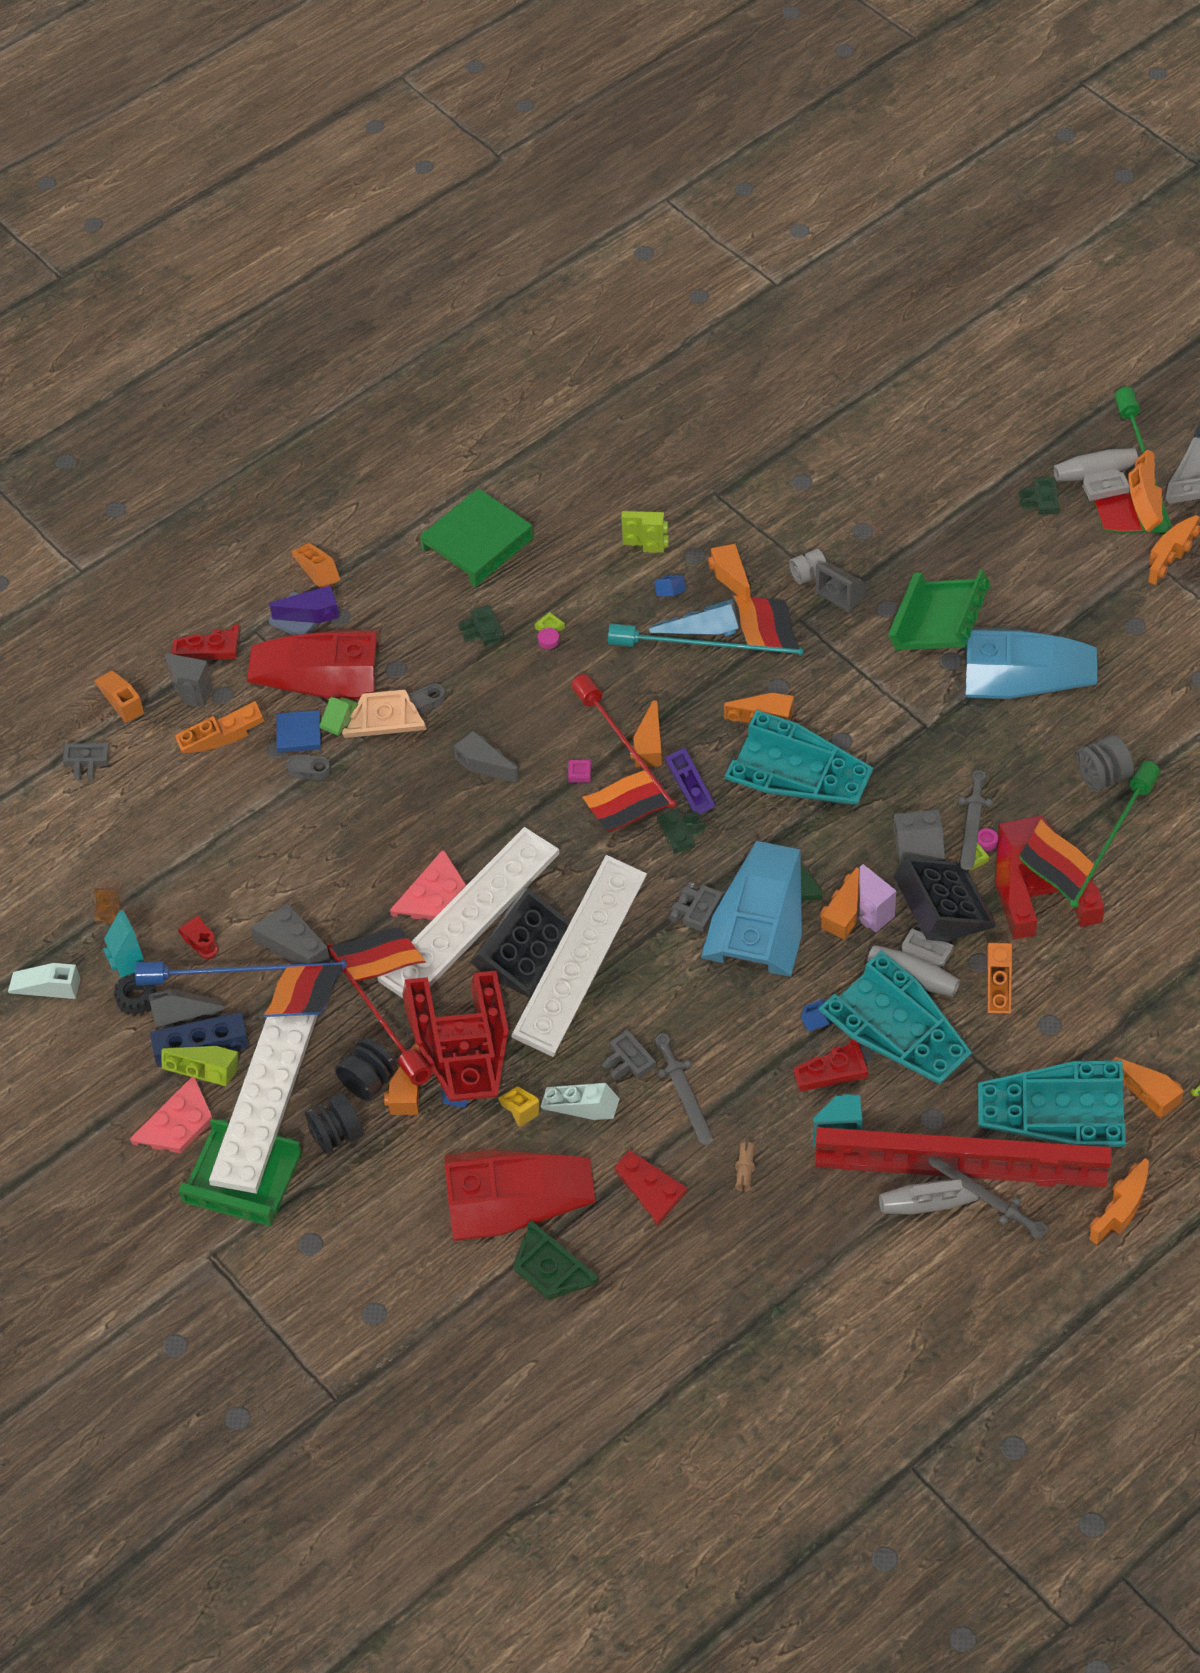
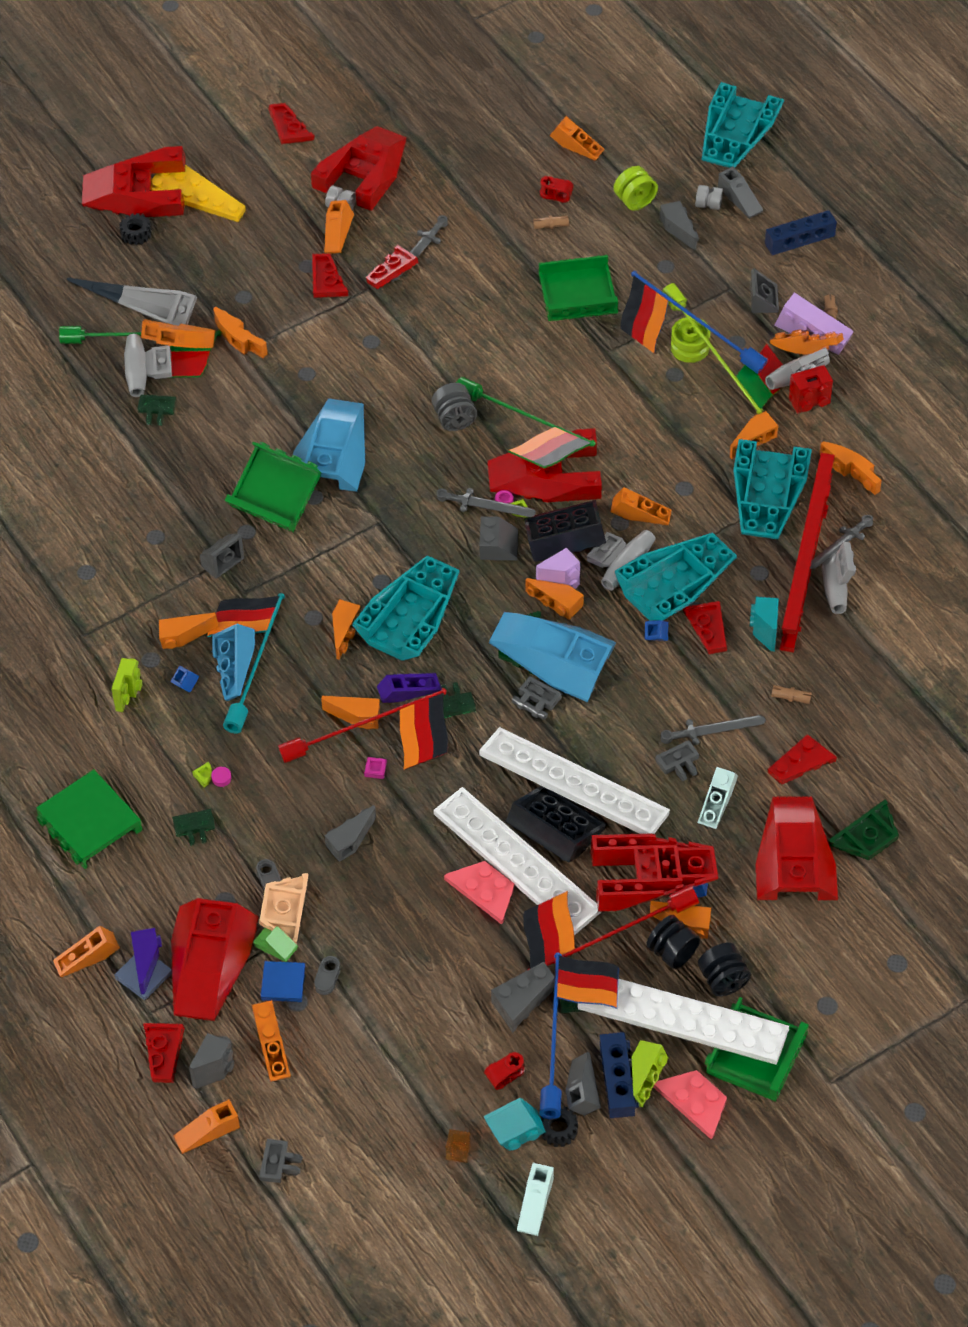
camera: 85 degrees left, 0 degrees up
(521, 1104) = (719, 834): yellow slope -> none
(805, 567) = (194, 574): light grey wheel -> none

